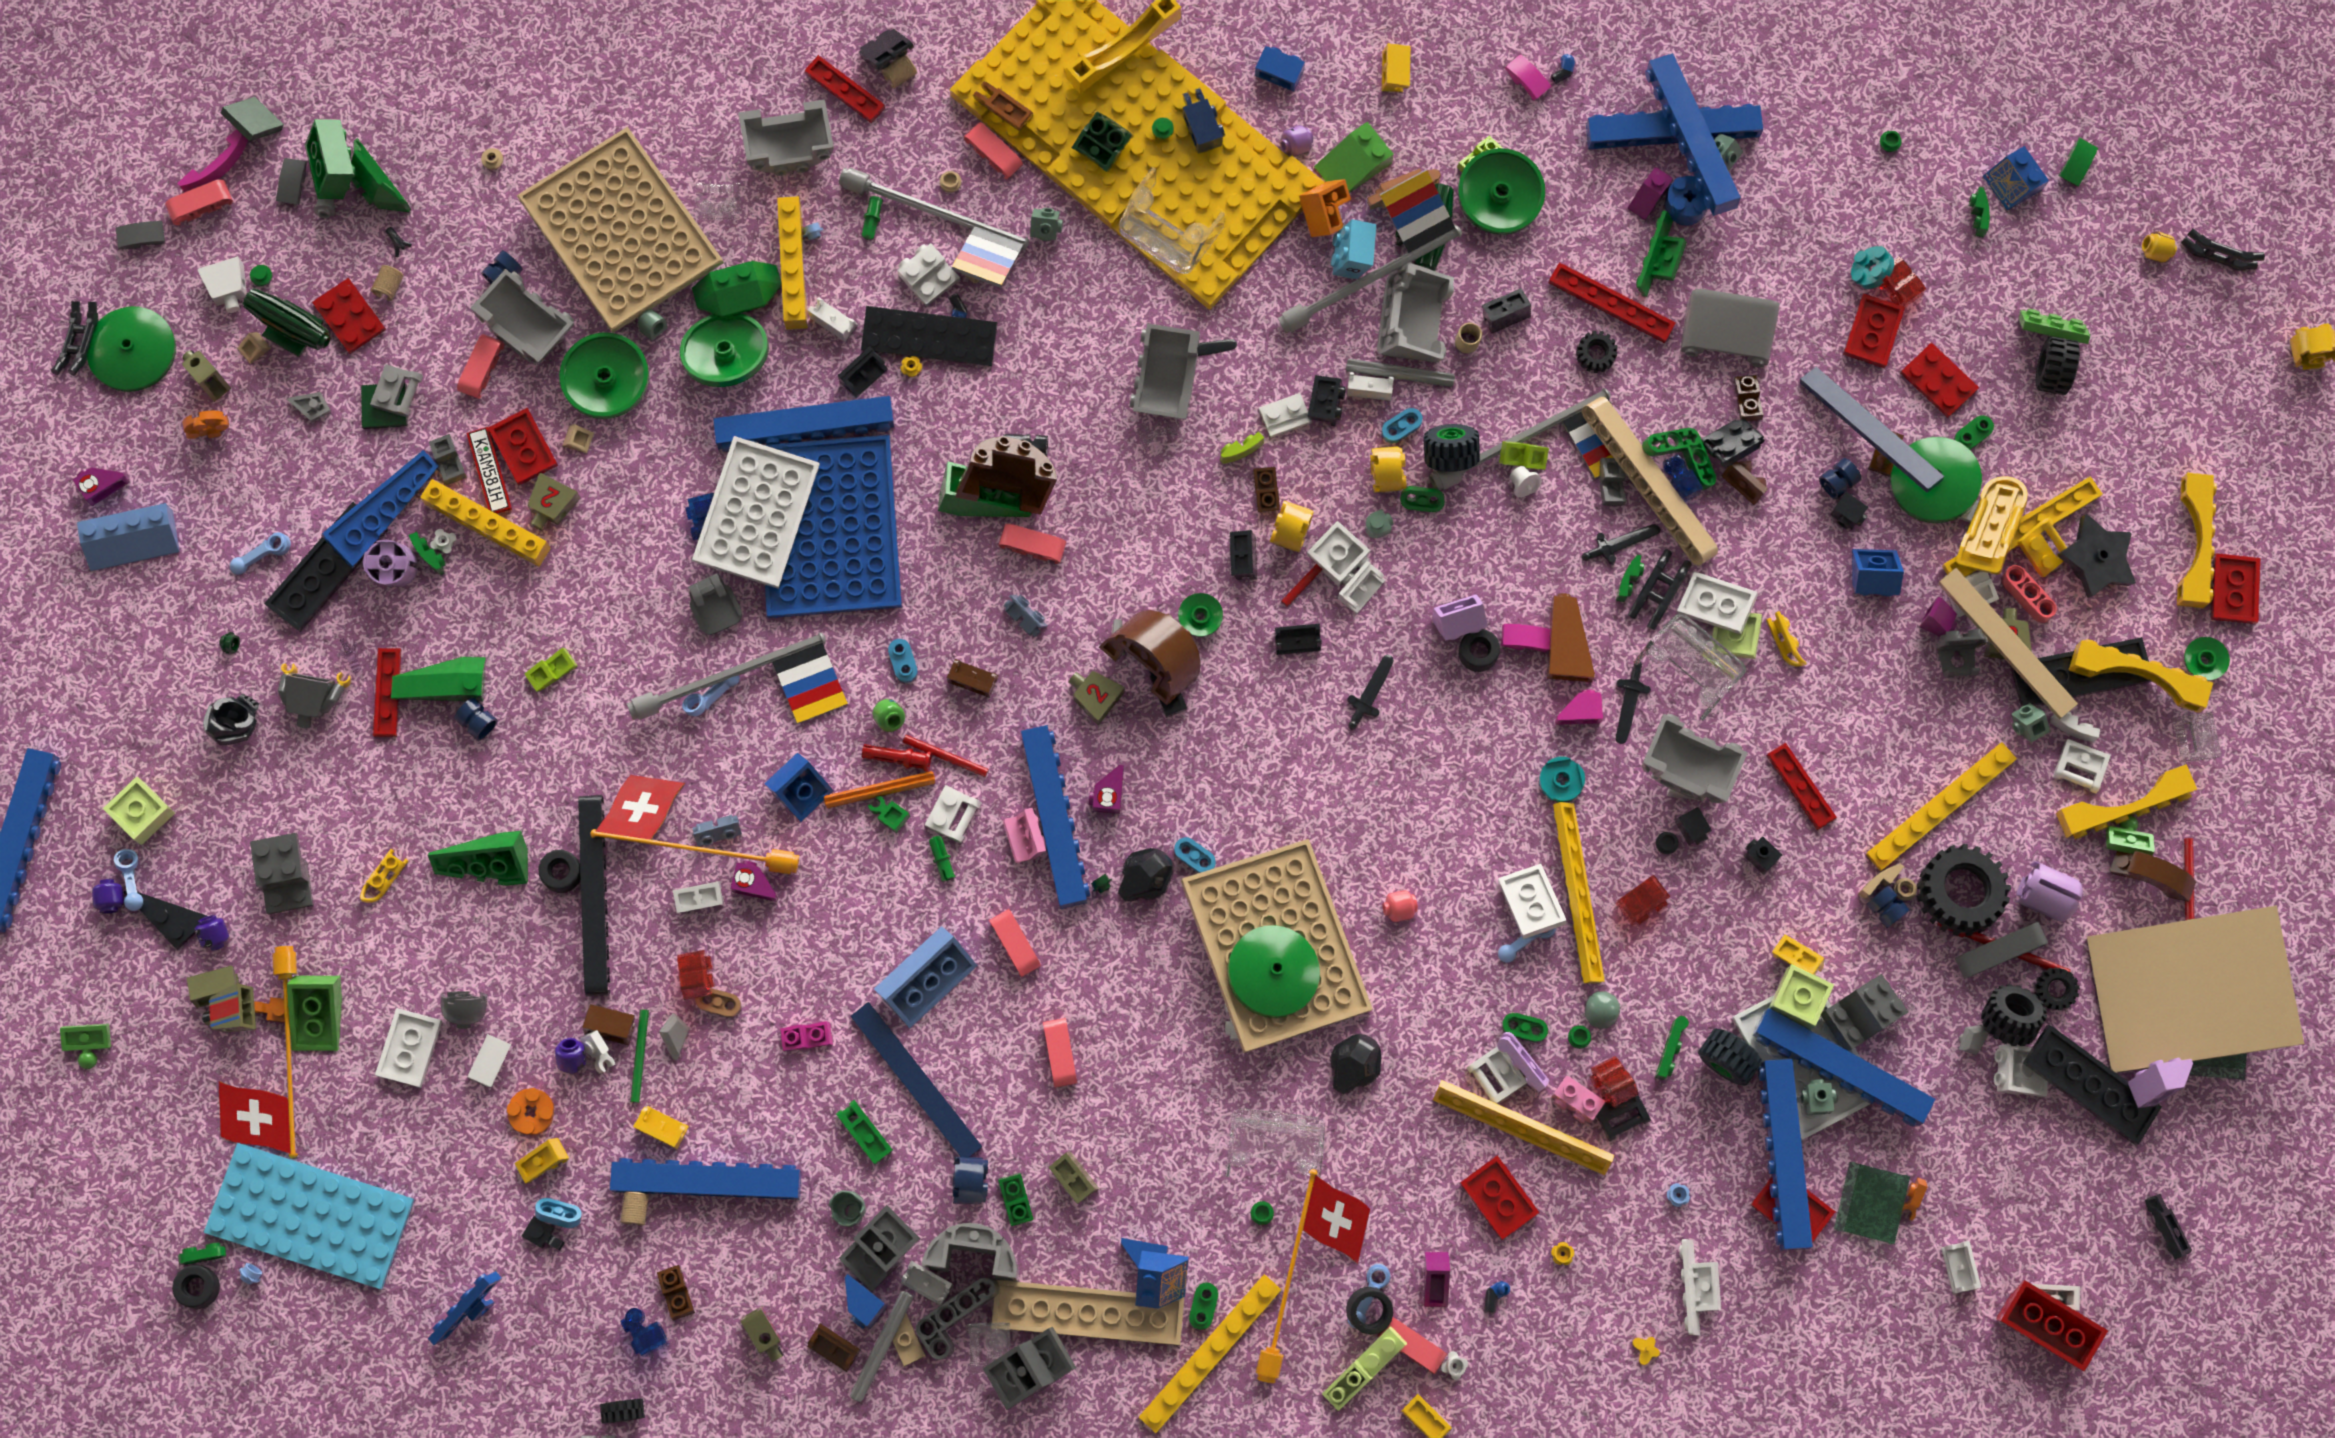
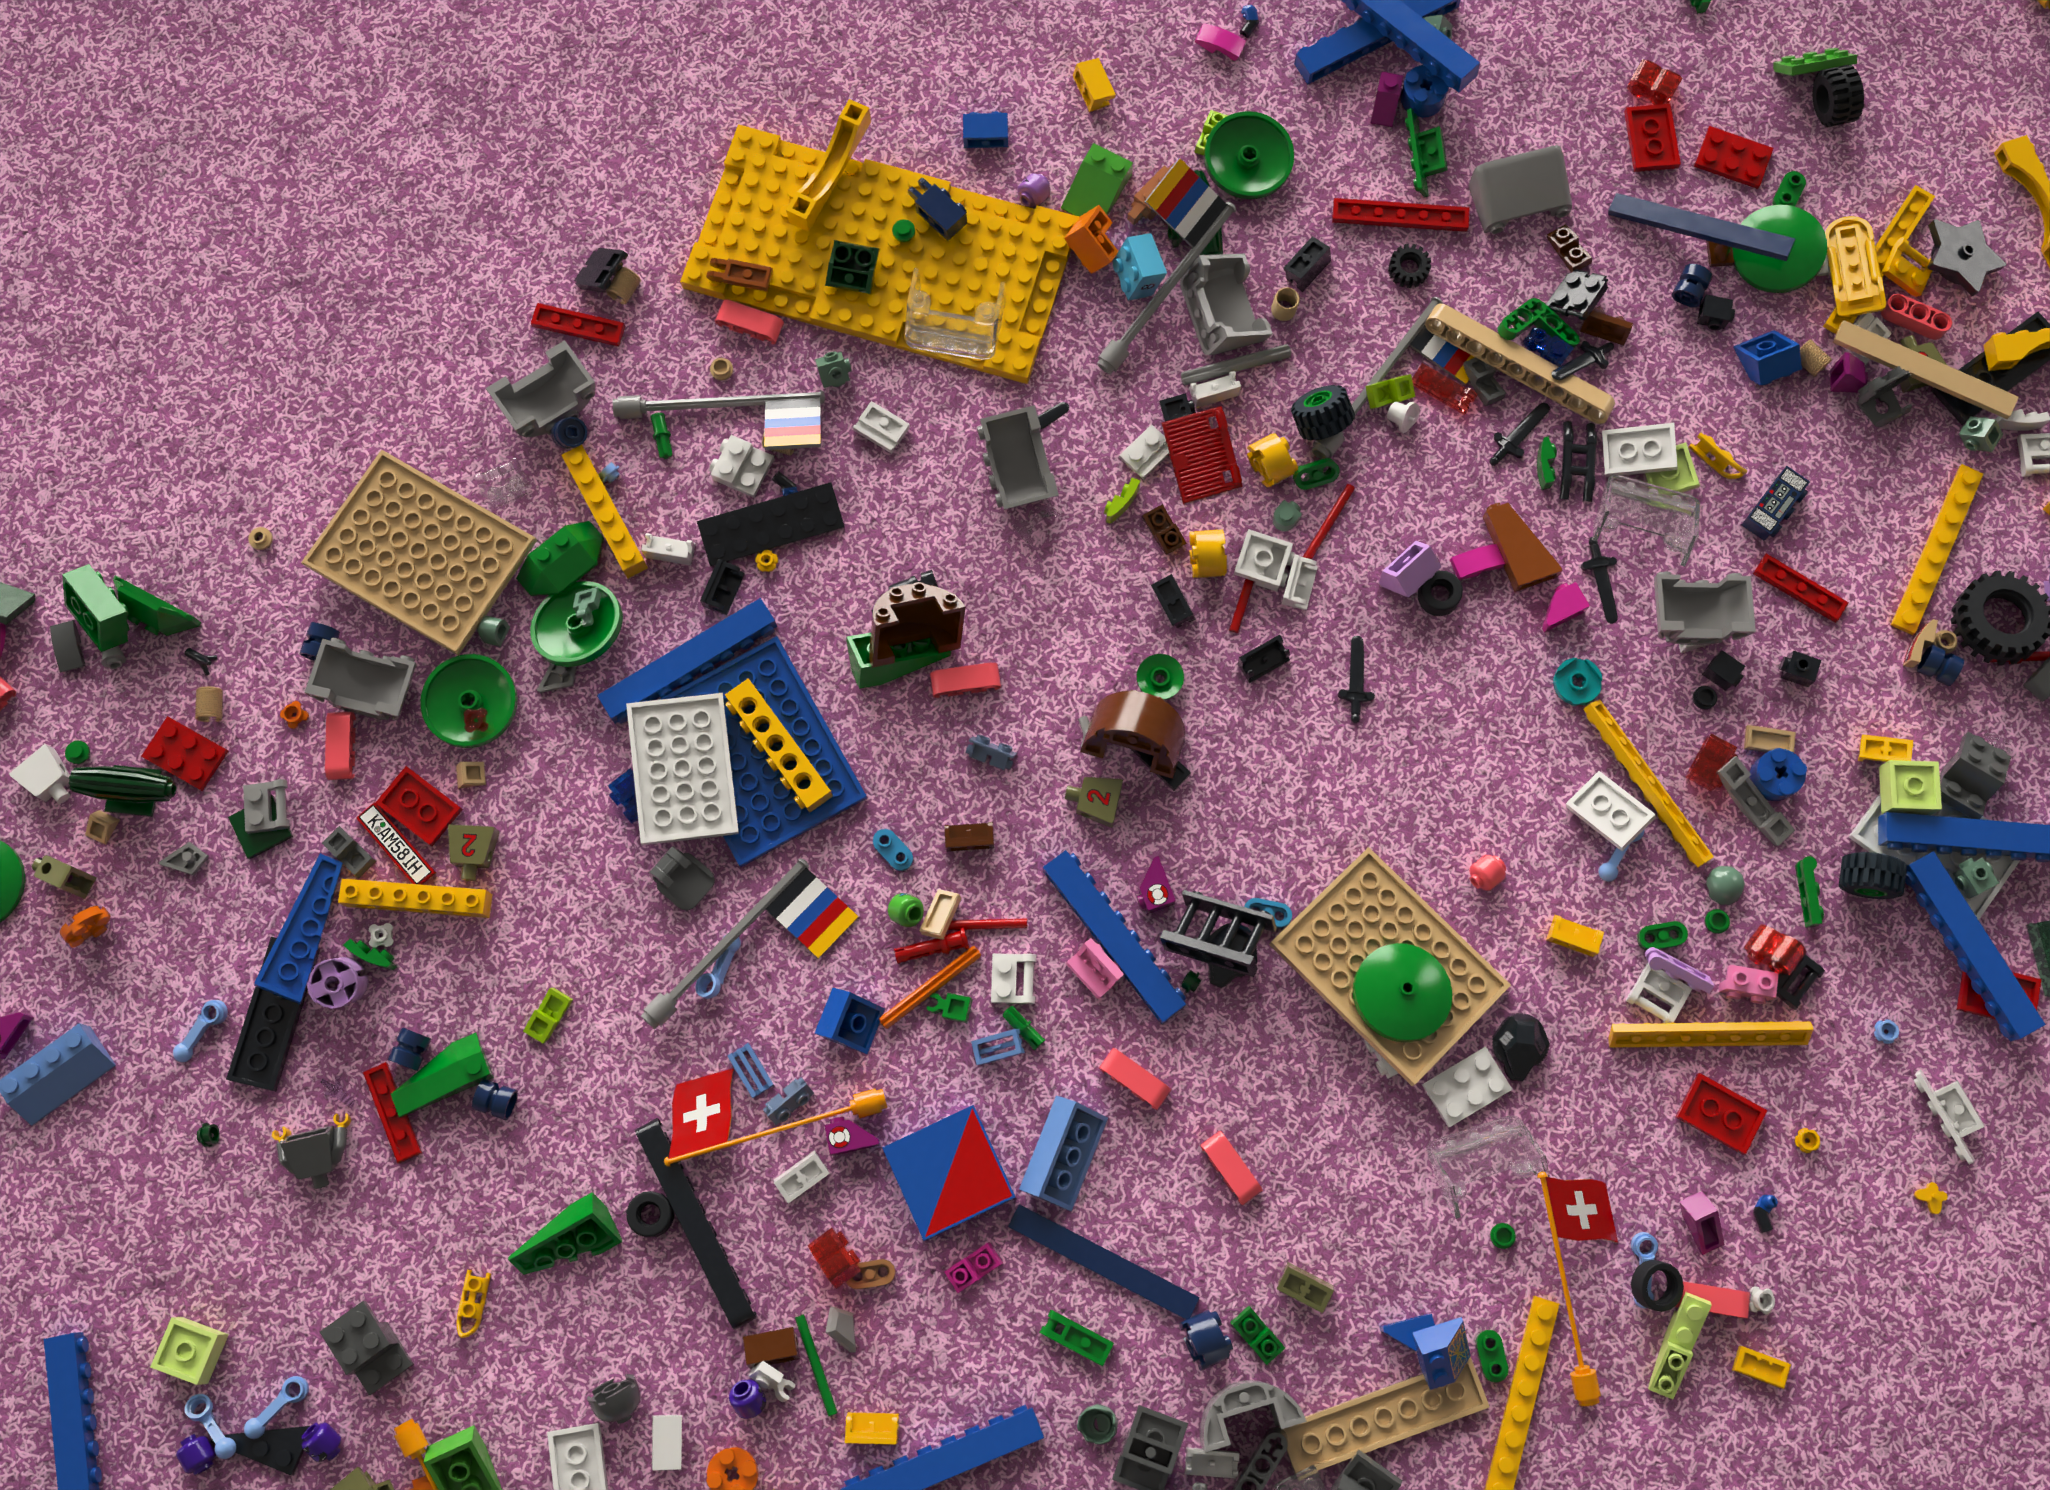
camera: 20 degrees left, 0 degrees up
(164, 896) = (255, 1427): none -> light blue piece
(231, 719) = (244, 1213): black helmet -> none
(424, 646) = (409, 1049): none -> dark blue wheel
(451, 317) = (287, 714): none -> orange plate
(596, 394) = (470, 715): none -> clear red plate
(687, 389) = (557, 678): none -> light grey piece
(695, 772) = (740, 1052): none -> medium blue tile
(739, 335) = (585, 603): none -> sand green plate
(792, 181) = (569, 432): none -> dark blue wheel
(822, 949) = (948, 1173): none -> tile
(833, 474) = (745, 695): none -> yellow brick
(916, 732) = (940, 914): none -> tan tile
(929, 866) = (1015, 1042): none -> medium blue tile
(1064, 292) = (881, 427): none -> white plate
(1133, 869) = (1219, 954): none -> black fence
(1293, 1077) = (1467, 1087): none -> white plate
(1329, 438) = (1201, 454): none -> red window
(1401, 426) = (1262, 414): dark azure plate -> none
(1412, 547) = (1329, 521): none -> red bar
(1449, 993) = (1575, 936): none -> yellow hinge
(1572, 473) = (1443, 388): none -> clear red plate
(1661, 949) = (1752, 803): none -> light grey slope
(1699, 924) = (1790, 770): none -> blue brick
(1705, 905) = (1768, 739): none -> tan tile
(1720, 501) = (1591, 355): none -> black sword
(1816, 703) = (1776, 504): none -> brick
(1865, 260) = (1613, 74): teal plate -> none
(1915, 589) = (1813, 358): none -> tan piece

